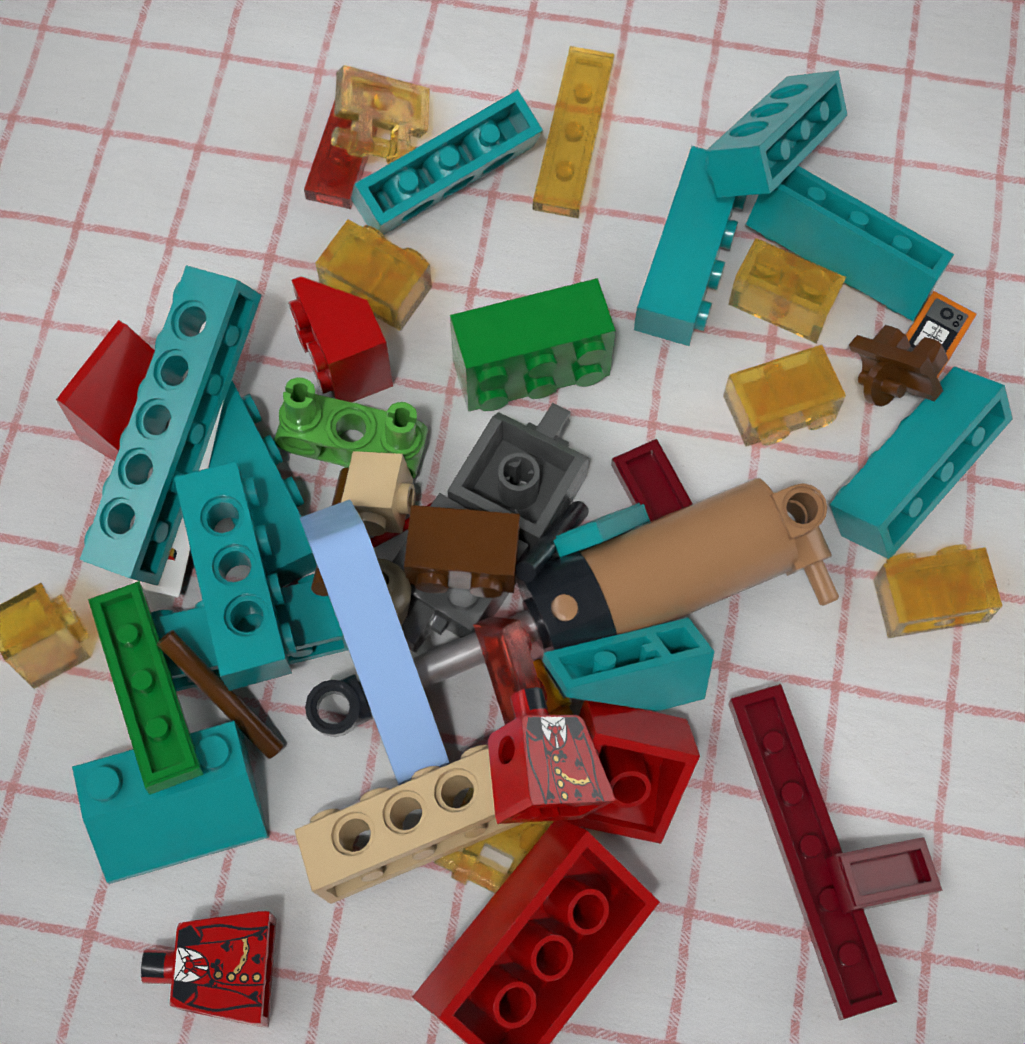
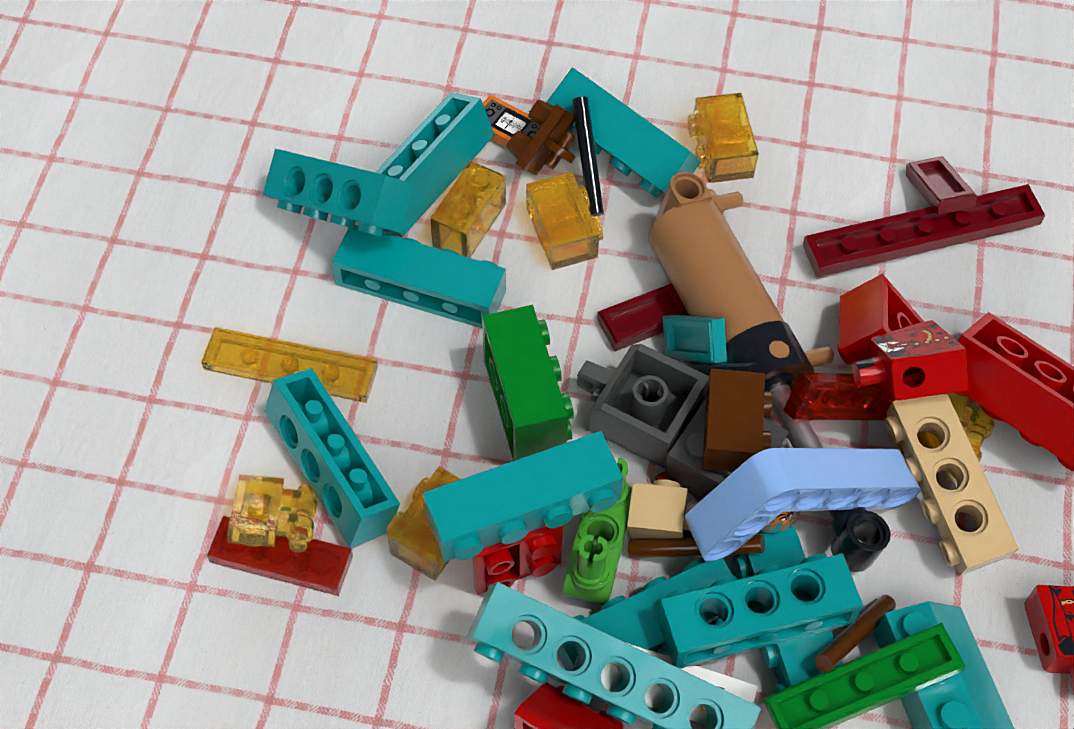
camera: 90 degrees left, 10 degrees down
(349, 313) = (523, 497): none -> teal brick
(637, 668) = (810, 315): teal slope -> none
(879, 418) = (588, 154): none -> black bar

